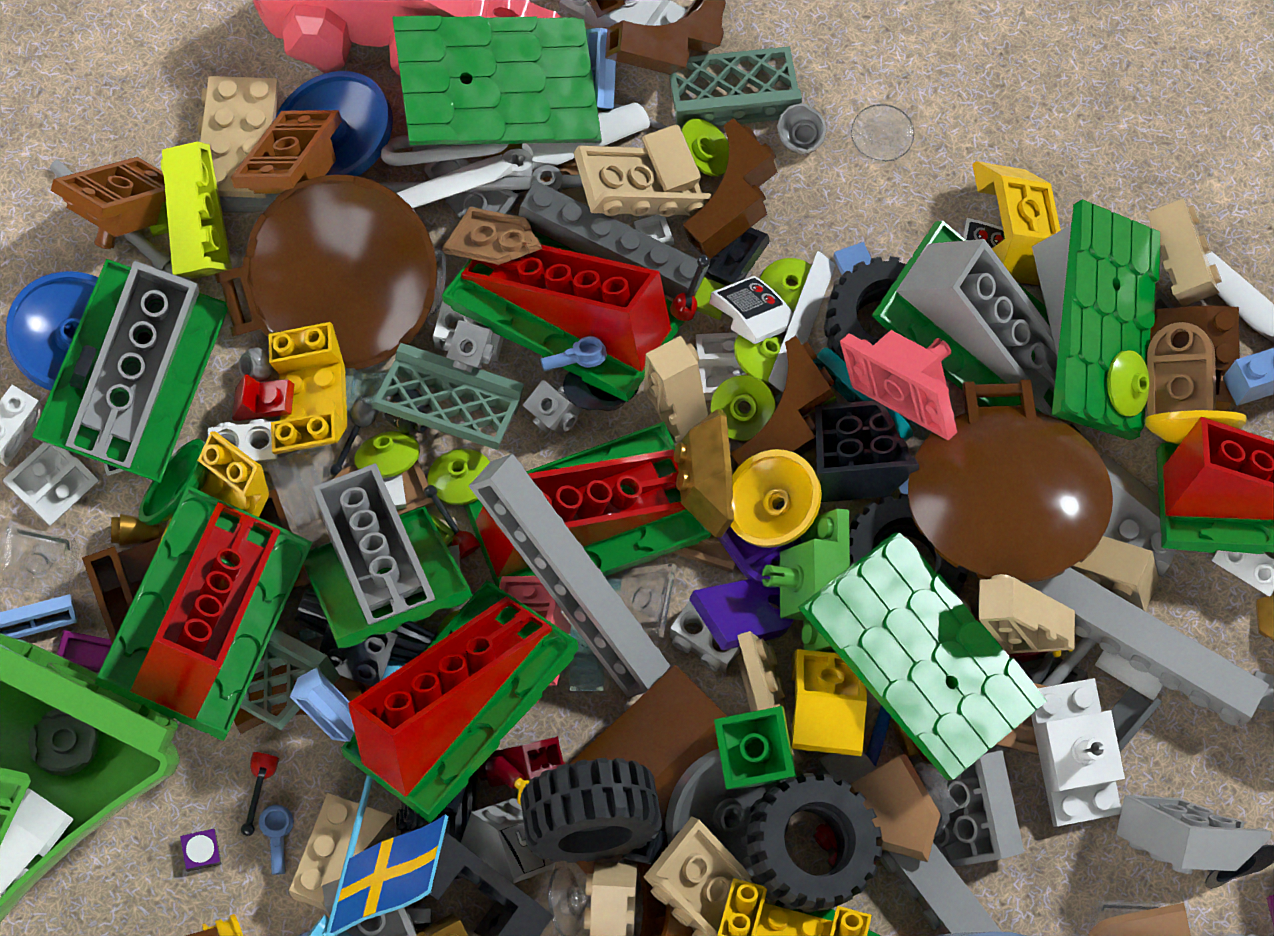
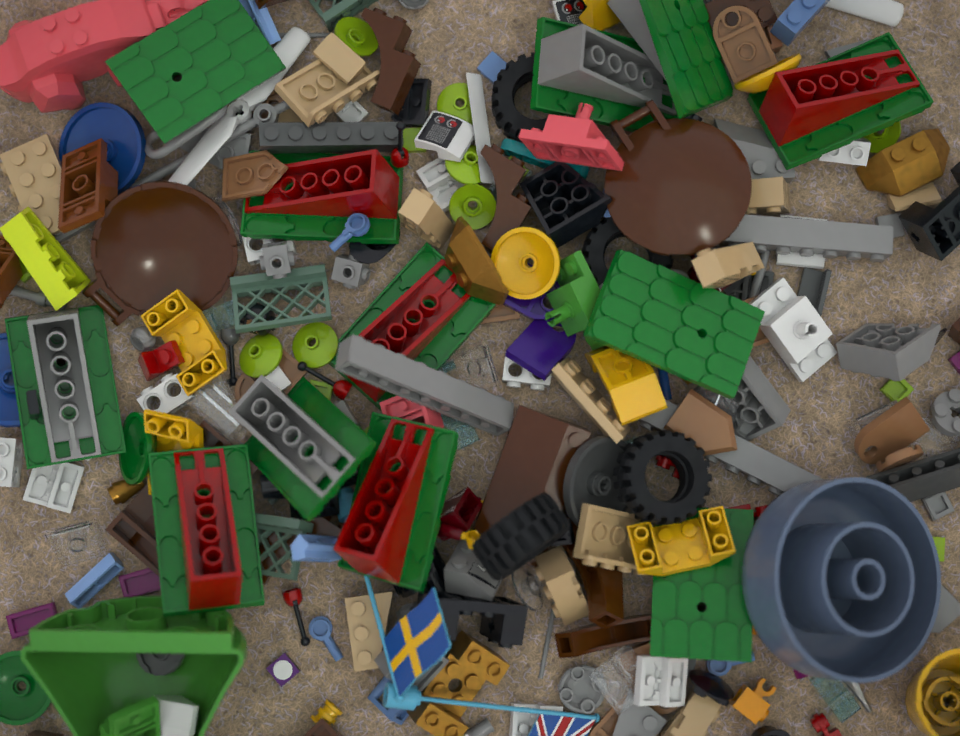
camera: 25 degrees left, 15 degrees up
(754, 748) = (601, 441): green slope -> none
(1128, 383) = (713, 67): lime dish -> none
(1181, 893) = (896, 389): none -> lime tile

